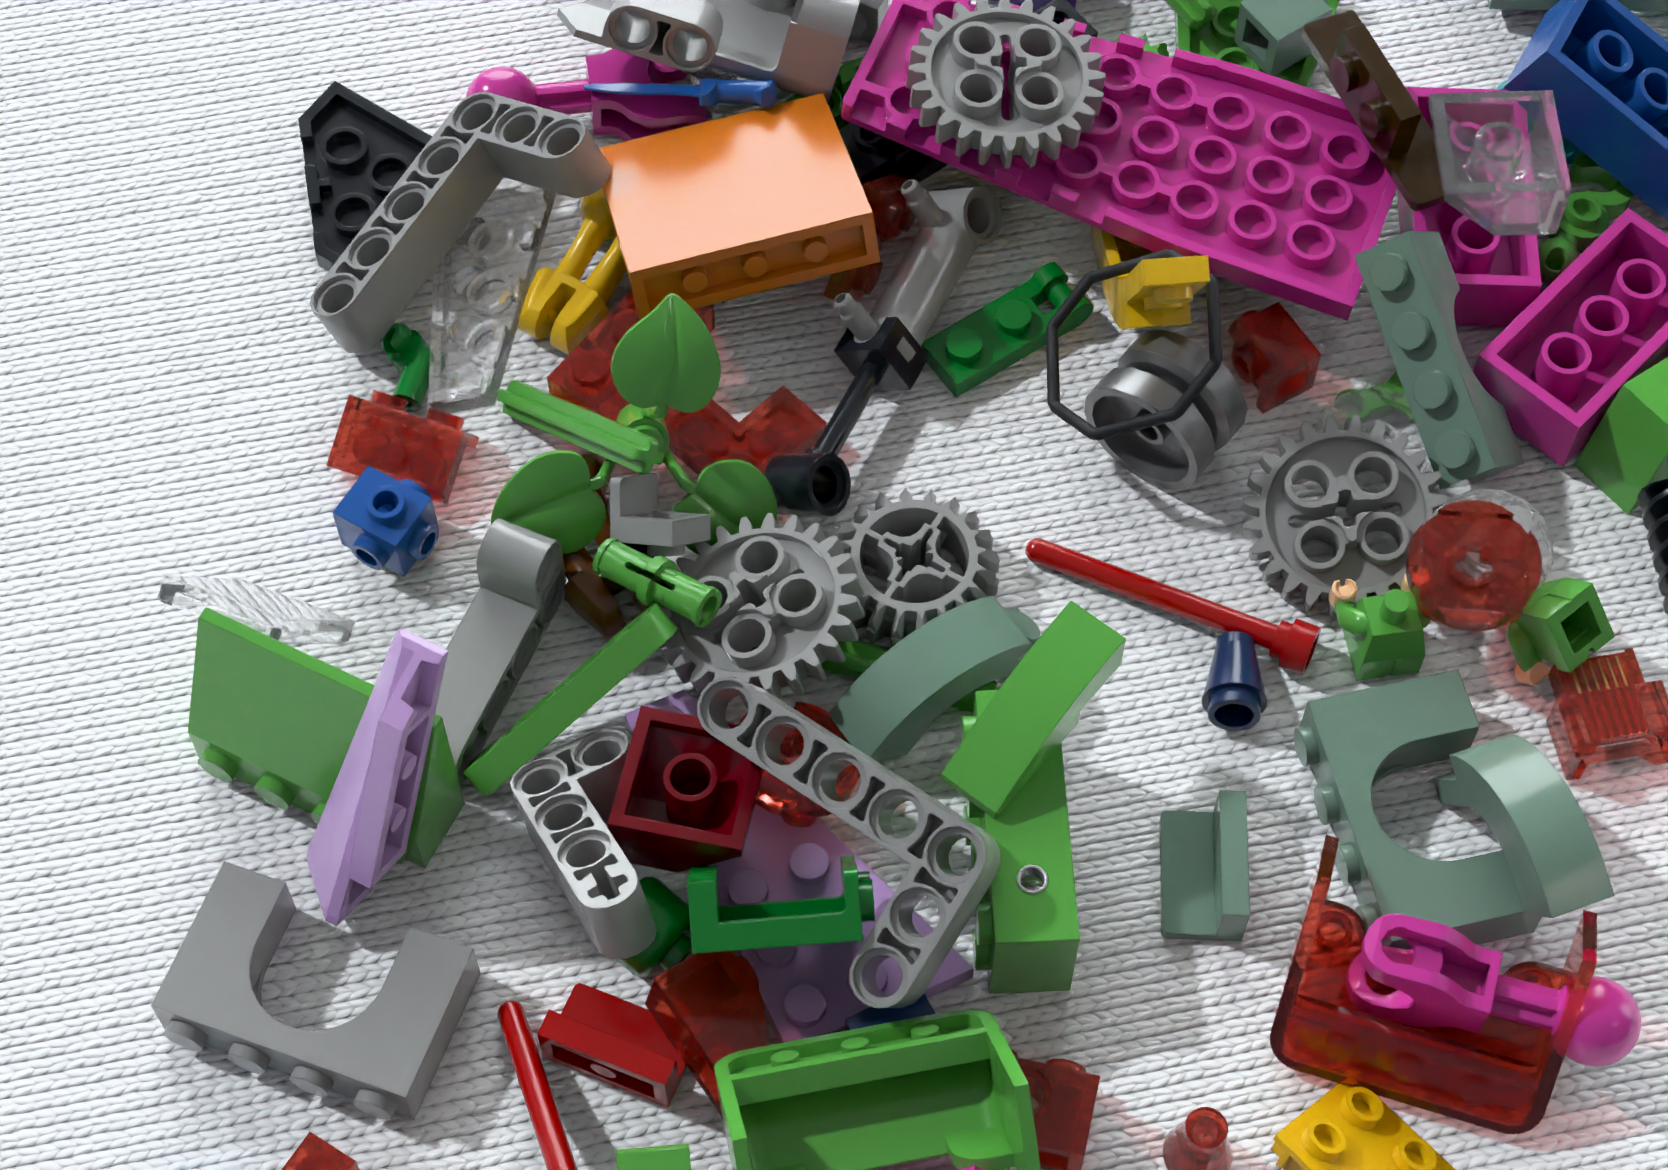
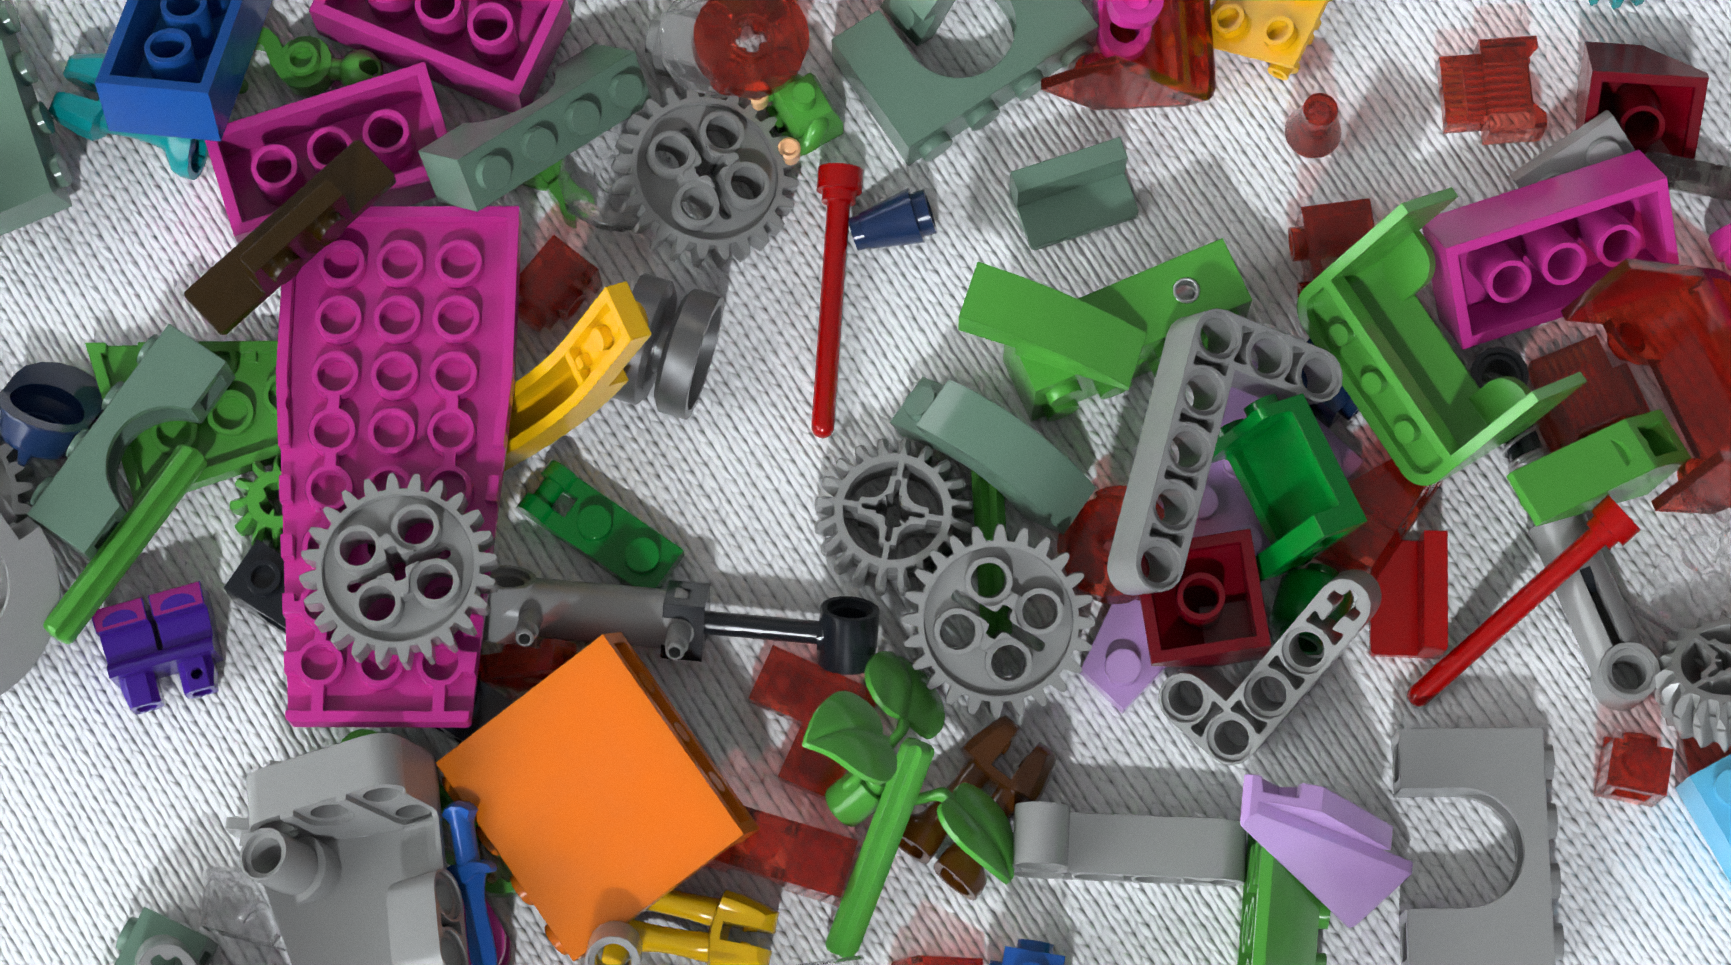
camera: 110 degrees left, 15 degrees up
(570, 700) = (1199, 785): bright green beam -> none
(637, 517) = (958, 736): light grey bracket -> none
(688, 595) = (1018, 707): bright green pin -> none
(1145, 421) = (663, 452): black piece -> none
(1502, 159) = (326, 111): clear slope -> none

